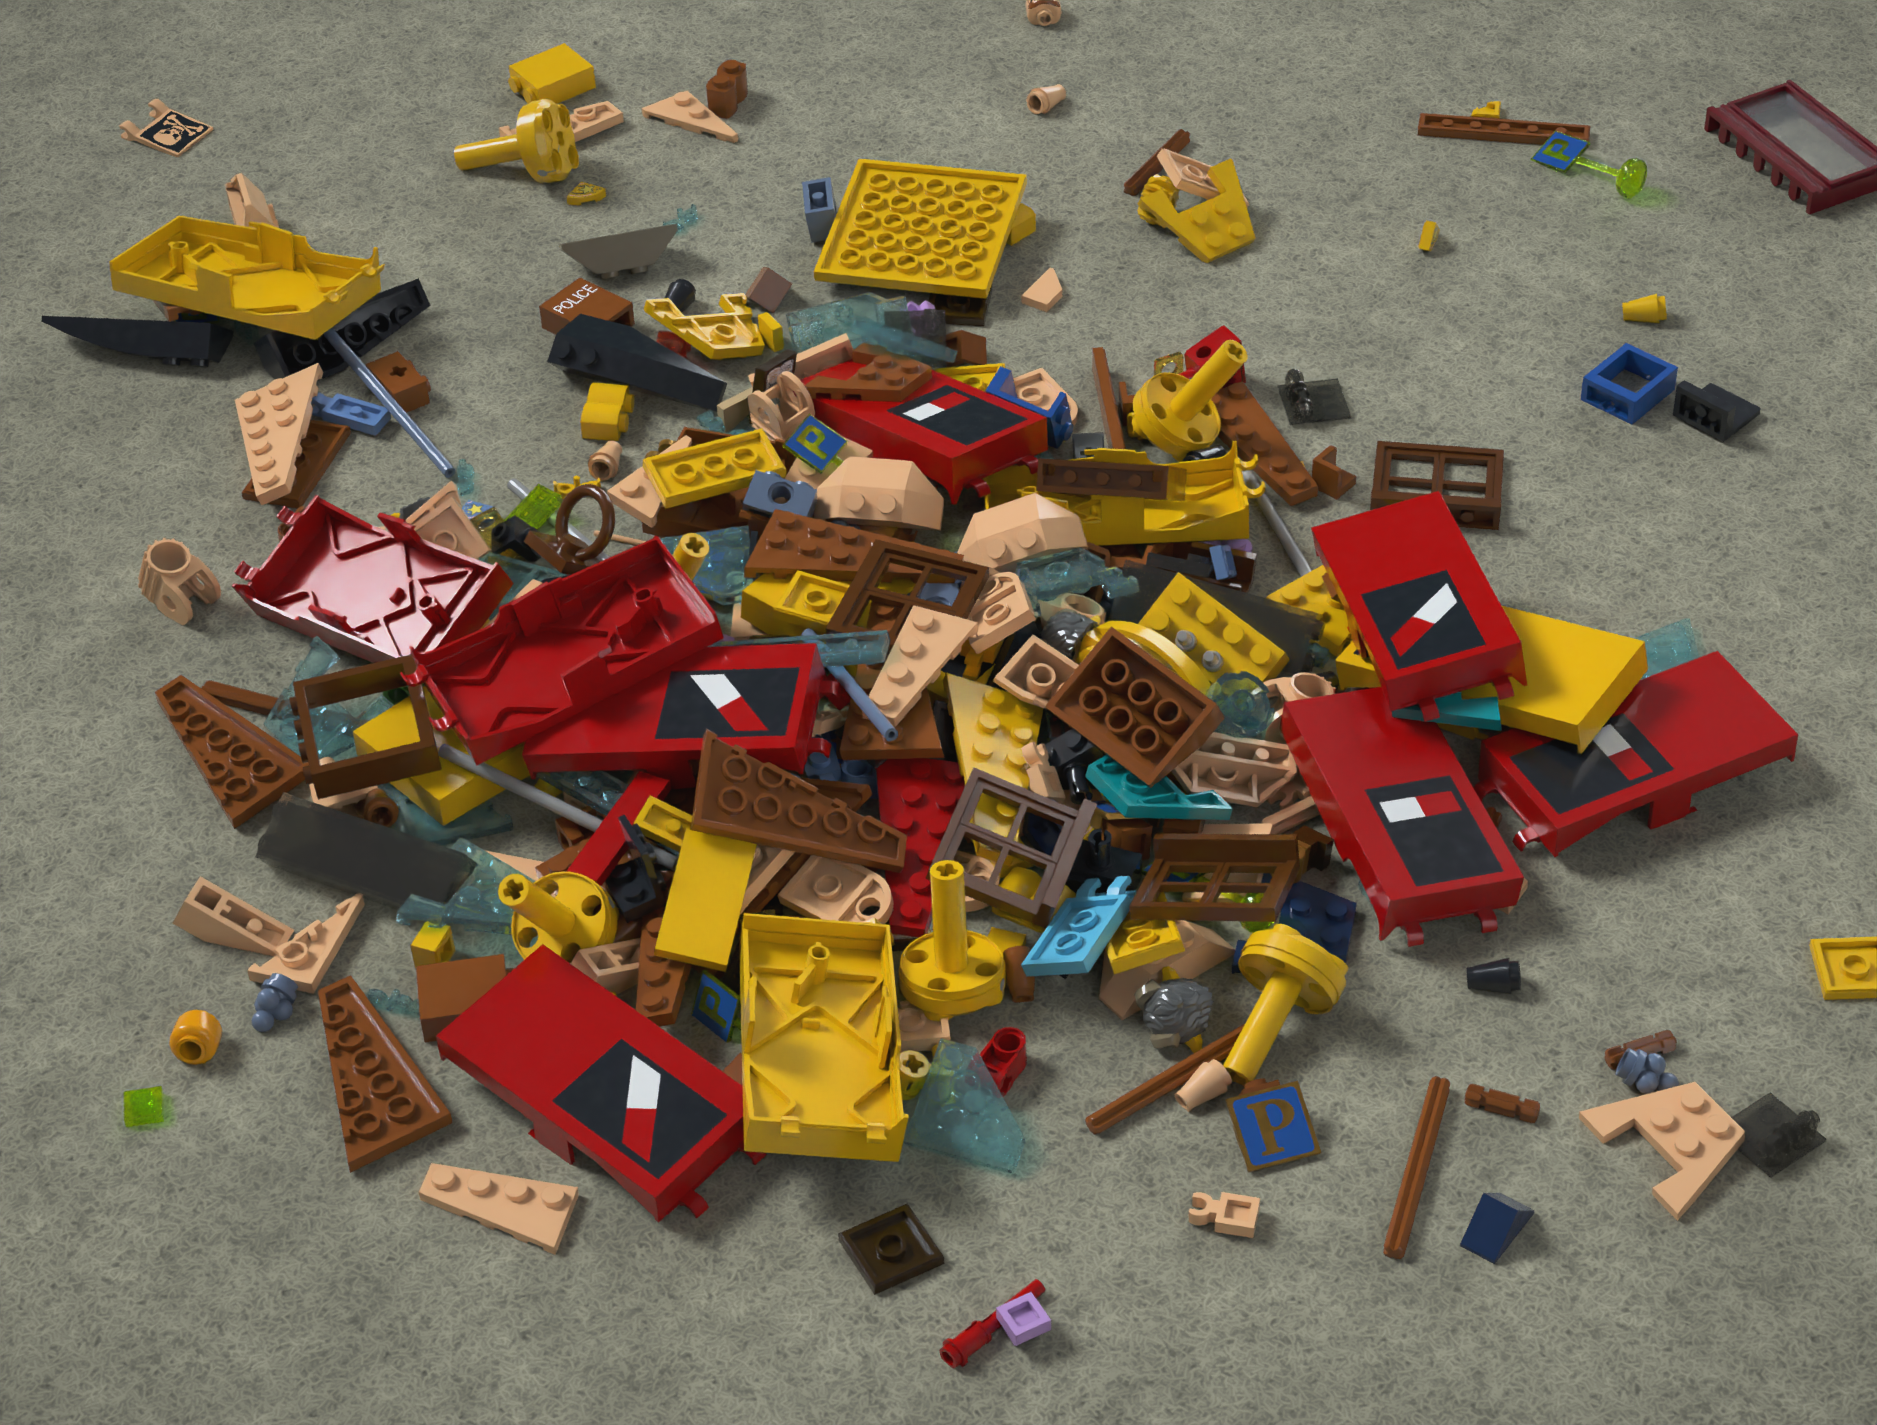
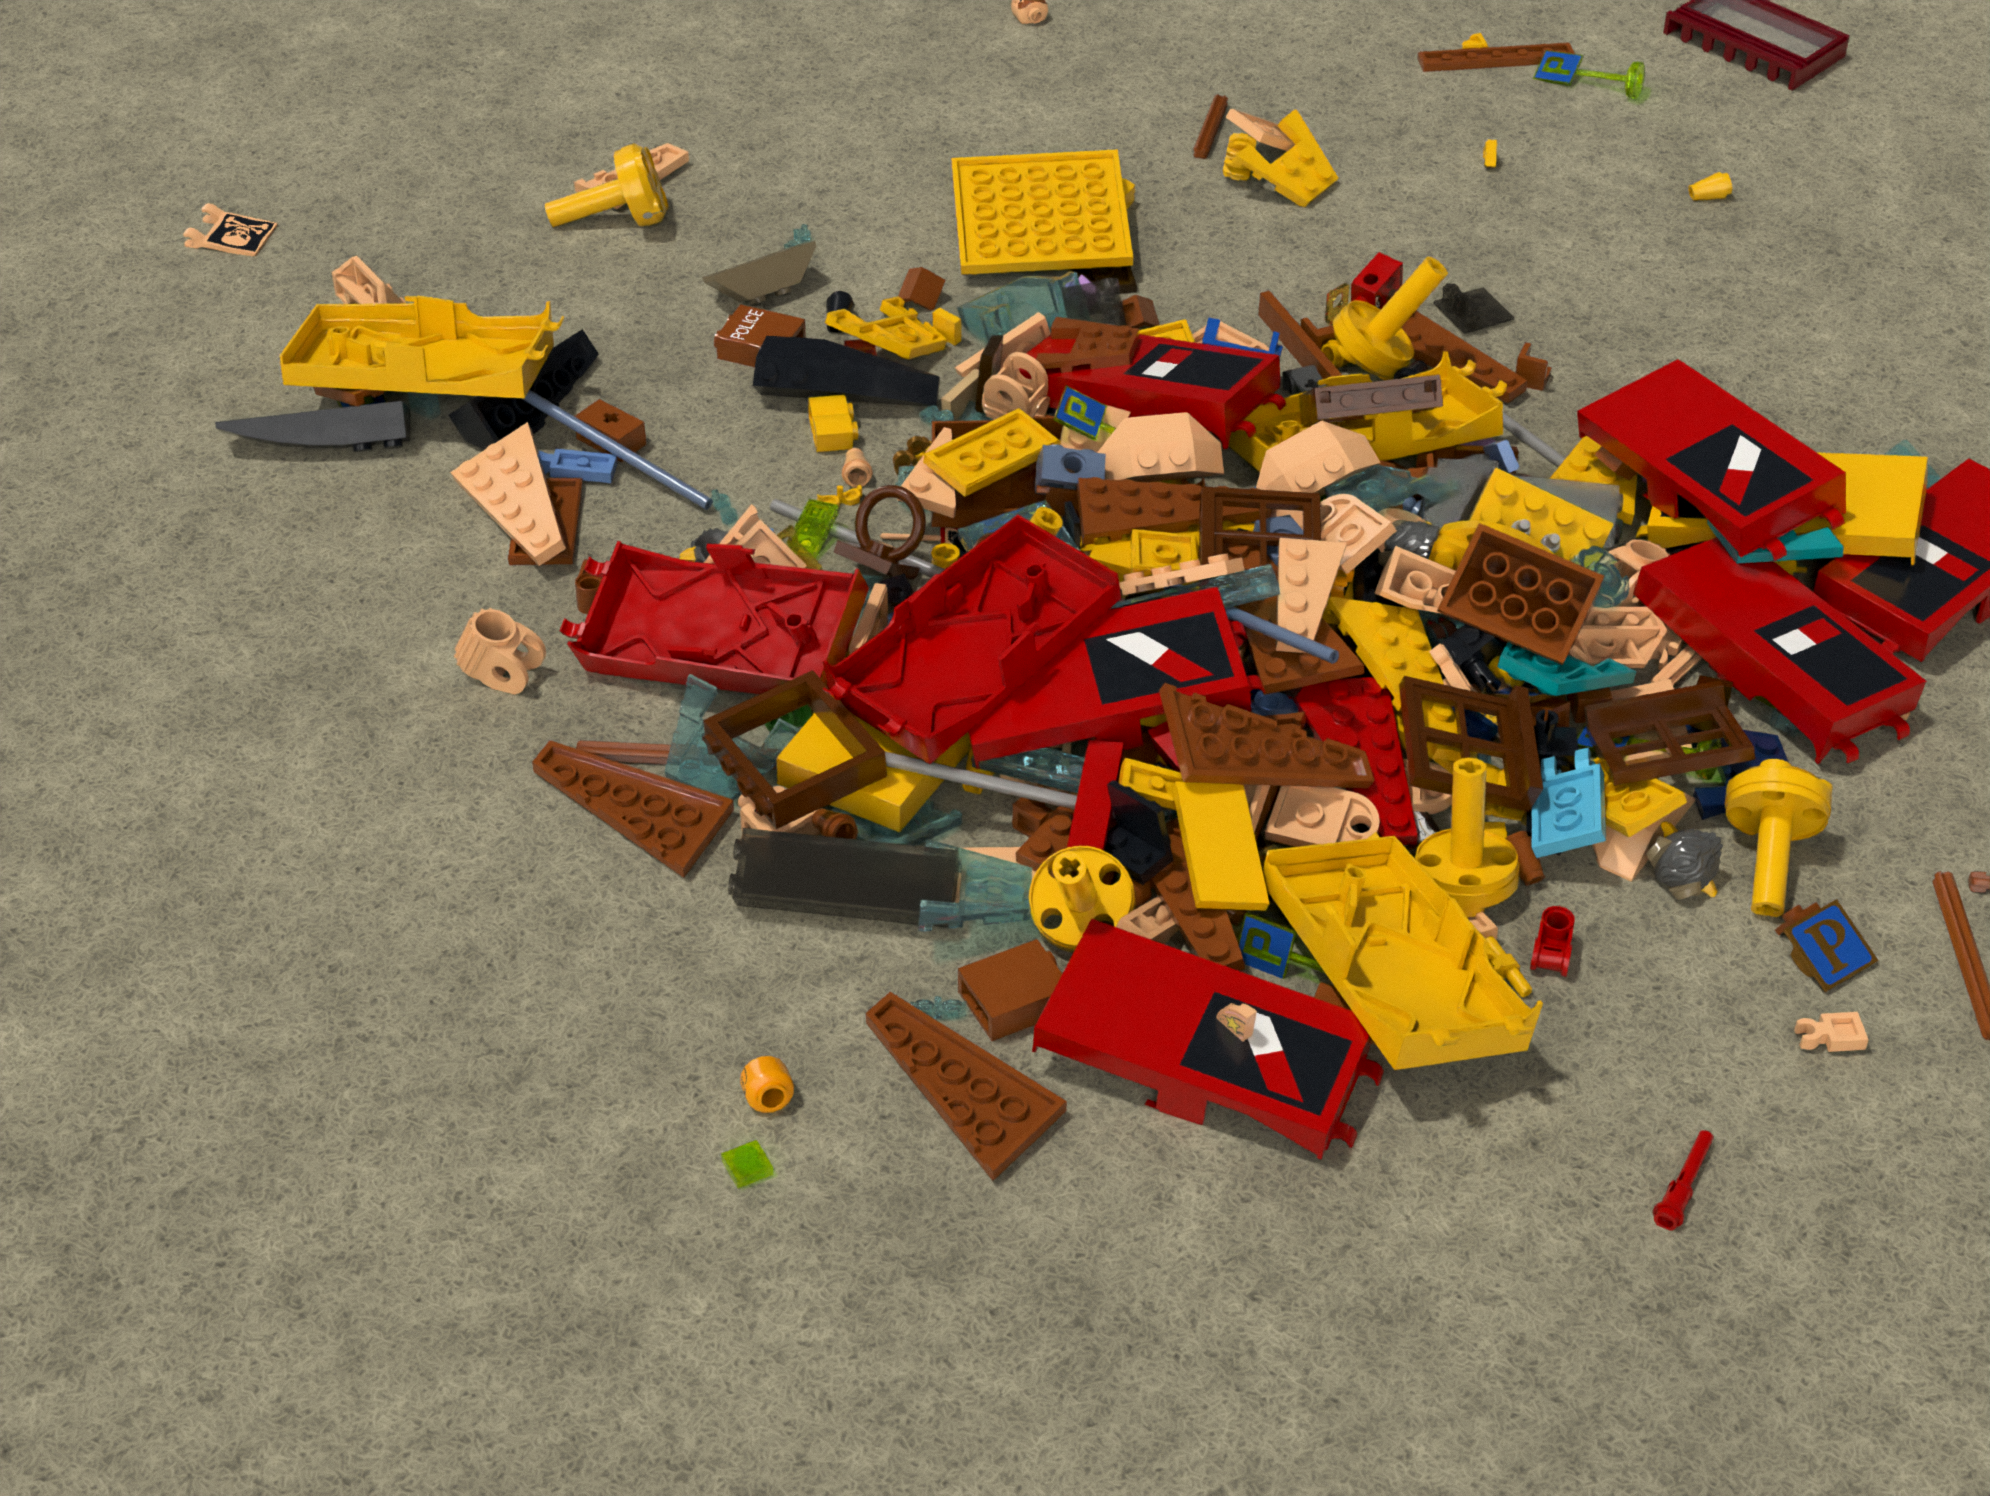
camera: 20 degrees left, 0 degrees up
(229, 921) = (733, 965): light nougat slope -> none
(274, 1001) = (824, 1033): sand blue piece -> none
(312, 949) = (831, 985): light nougat wing -> none
(432, 945) = (955, 948): yellow slope -> none
(512, 535) = (814, 549): black bracket -> none
(516, 1205) = (1173, 1174): light nougat wing -> none
(552, 75) = (599, 129): yellow brick -> none
(584, 193) = (691, 229): yellow tile -> none
(623, 1071) = (1238, 1020): none -> light nougat tile
(691, 115) = (747, 144): light nougat wing -> none
(727, 88) = (777, 116): dark orange brick -> none
(792, 624) = (1188, 572): none -> light nougat wing
(819, 207) = (933, 210): sand blue brick -> none
(891, 1248) = (1550, 1134): dark brown tile -> none
(899, 341) = (1095, 312): clear light blue wing -> none
(964, 1112) = (1572, 1000): clear light blue plate -> none
(1023, 1319) = (1718, 1169): lavender tile -> none
(1044, 292) = (1176, 253): light nougat tile -> none
(1045, 98) = (1077, 85): light nougat cone -> none
(1160, 1084) = (1708, 924): dark orange axle -> none
(1205, 1084) = (1745, 921): light nougat cone -> none
(1467, 511) = (1596, 386): reddish brown window -> none
(1495, 976) = (1936, 774): black cone -> none
(1629, 406) = (1744, 267): blue window -> none
(1713, 409) = (1819, 263): black bracket -> none

